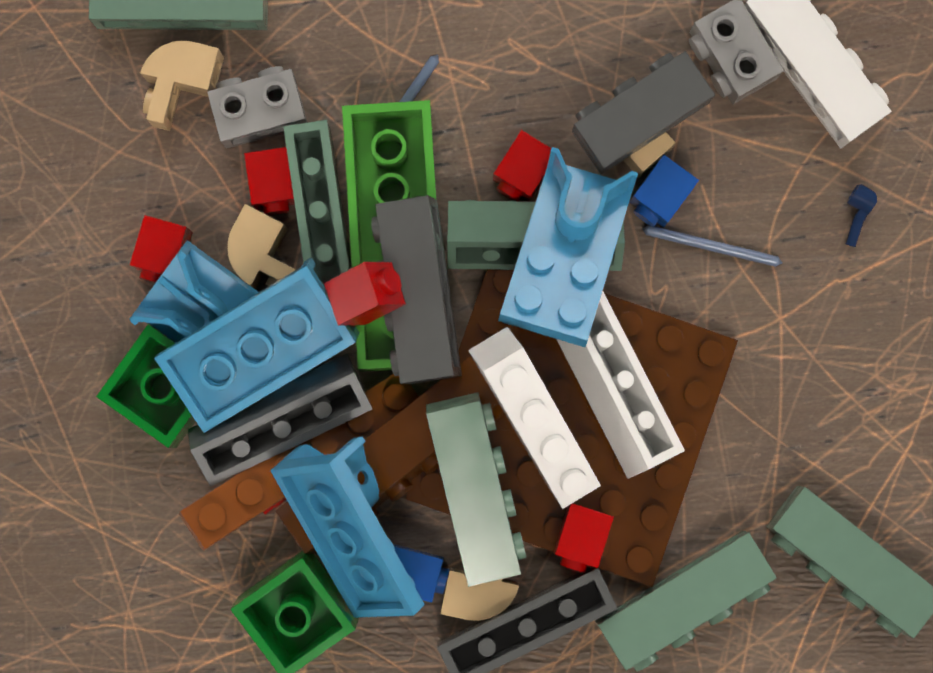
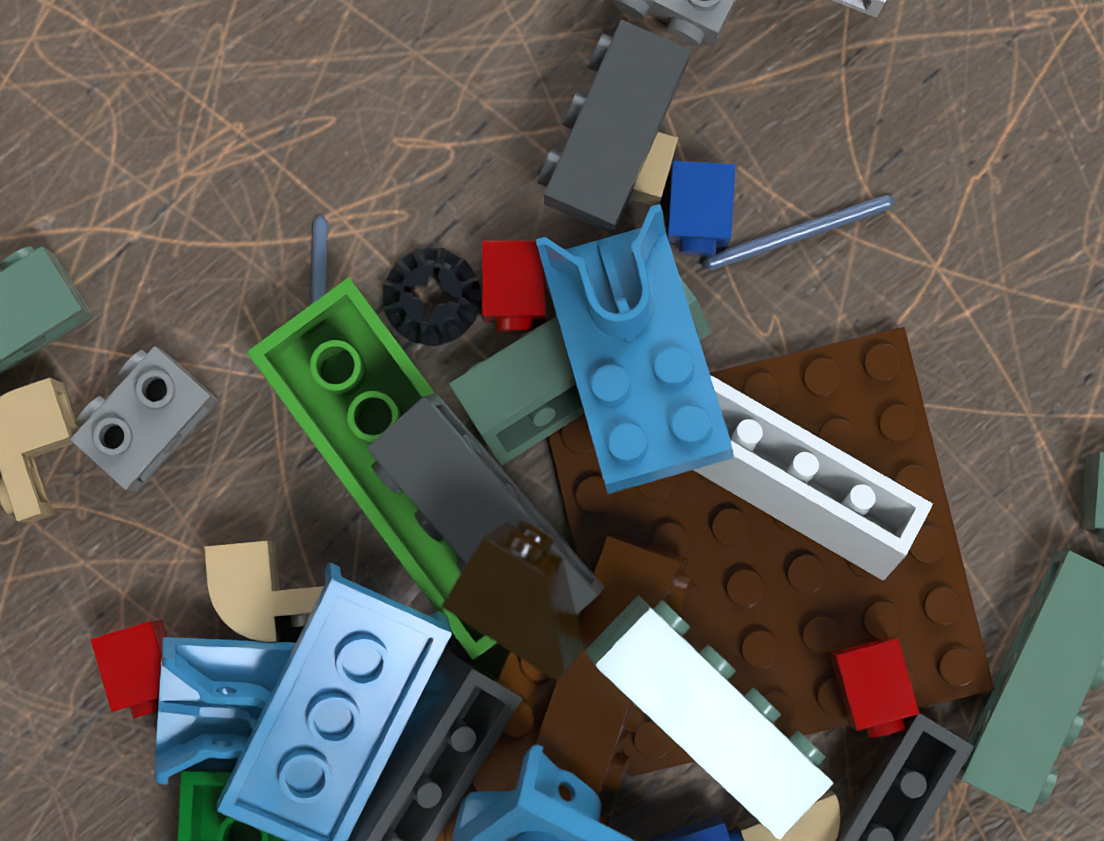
camera: 30 degrees left, 0 degrees up
(269, 180) = (218, 496): red brick -> none
(317, 198) = (297, 490): sand green brick -> none
(365, 293) = (423, 565): red brick -> none
(408, 345) = (520, 598): none -> dark brown slope
(471, 164) = (447, 320): none -> black gear
(534, 417) = (726, 581): white brick -> none
(864, 201) = (947, 63): dark blue hand -> none

